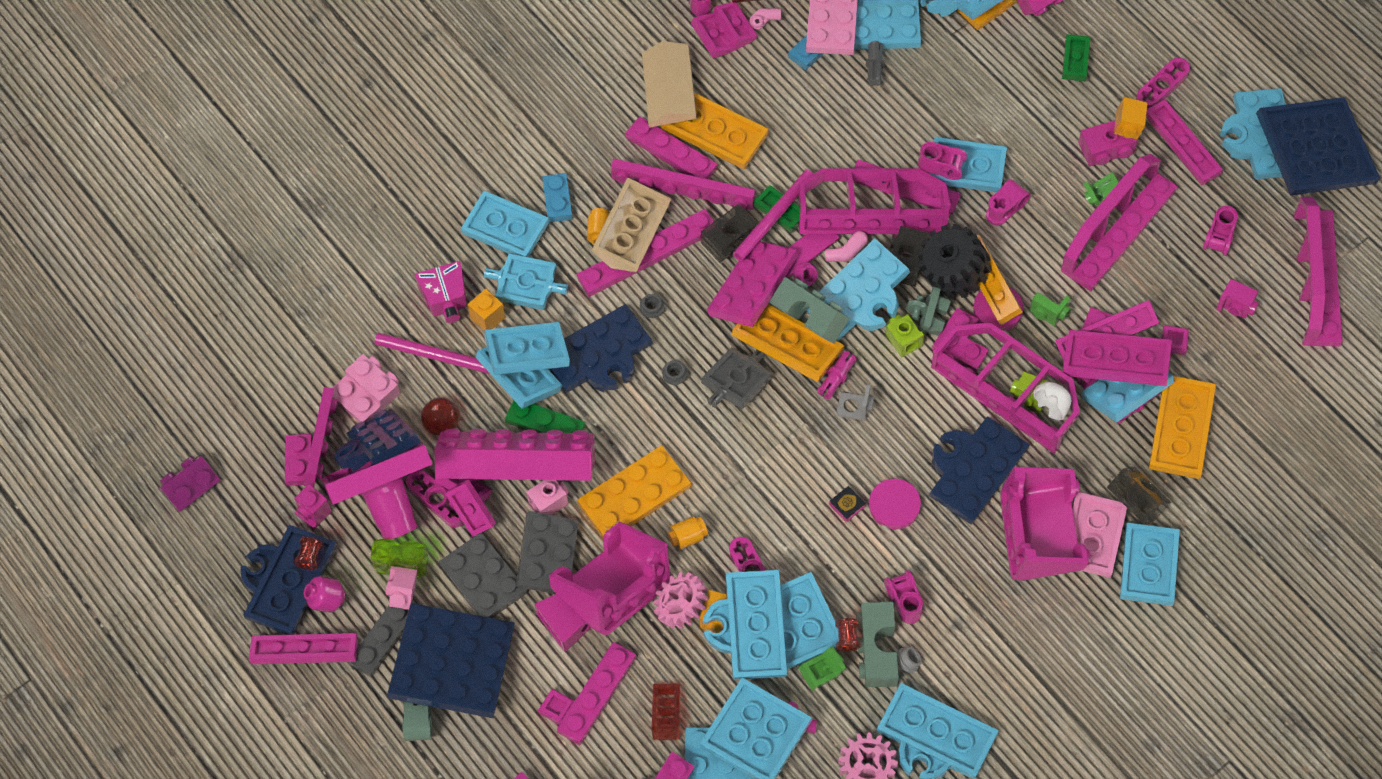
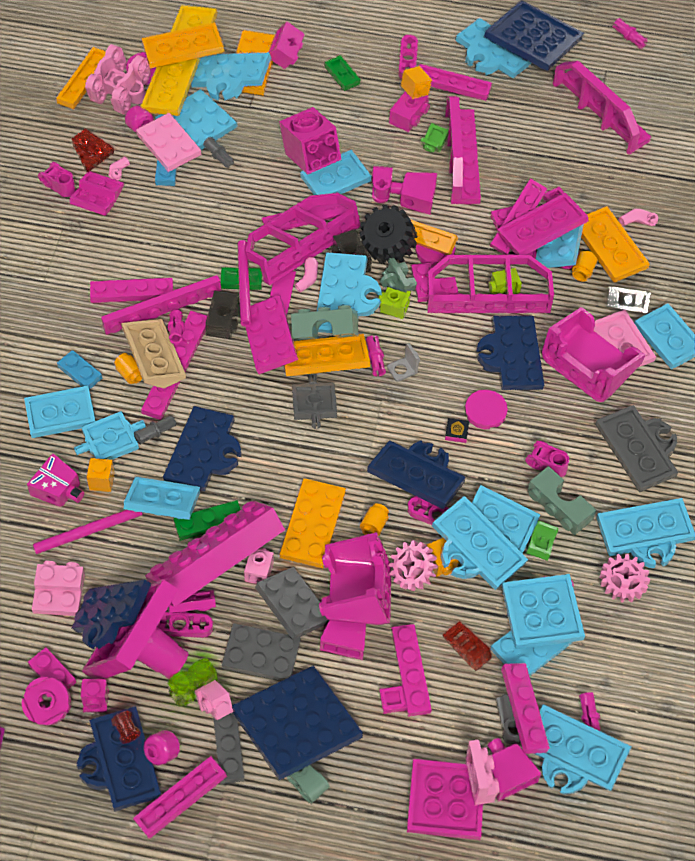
camera: 45 degrees left, 5 degrees down
(278, 491) = (58, 706): none -> dark pink plate
(322, 428) = (54, 638): dark pink plate -> none
(440, 415) = (130, 567): clear red hair -> none
(470, 508) = (214, 610): dark pink plate -> none
(526, 348) = (157, 476): medium azure plate -> none
(571, 302) = (154, 429): none -> dark grey axle
(652, 299) = (209, 391): dark grey plate -> none
(668, 83) = (92, 248): tan slope -> none
(674, 366) = (267, 422): dark grey plate -> none
(675, 215) = (175, 326): none -> dark pink pin
(721, 132) = (149, 257): light orange plate -> none
(769, 516) = (418, 472): none -> dark blue plate
(810, 273) = (295, 305): dark pink plate -> none
(847, 634) = (540, 506): clear red bush -> none
(908, 659) = (588, 494): light grey plate -> none
(942, 161) = (321, 180): dark pink piece -> none
(966, 110) = (310, 140): none -> dark pink brick
(1009, 651) = (640, 447): none -> dark grey plate
(1033, 235) = (416, 191): none -> dark pink torso
(1048, 310) = (468, 228): bright green bracket -> none
(1055, 398) = (530, 273): white hair -> none
(1131, 429) = (584, 265): none -> light orange brick
(1220, 233) = (525, 117): dark pink piece -> none
(1238, 299) = (572, 150): dark pink brick -> none
(1243, 417) = (639, 216): none -> bright pink arm

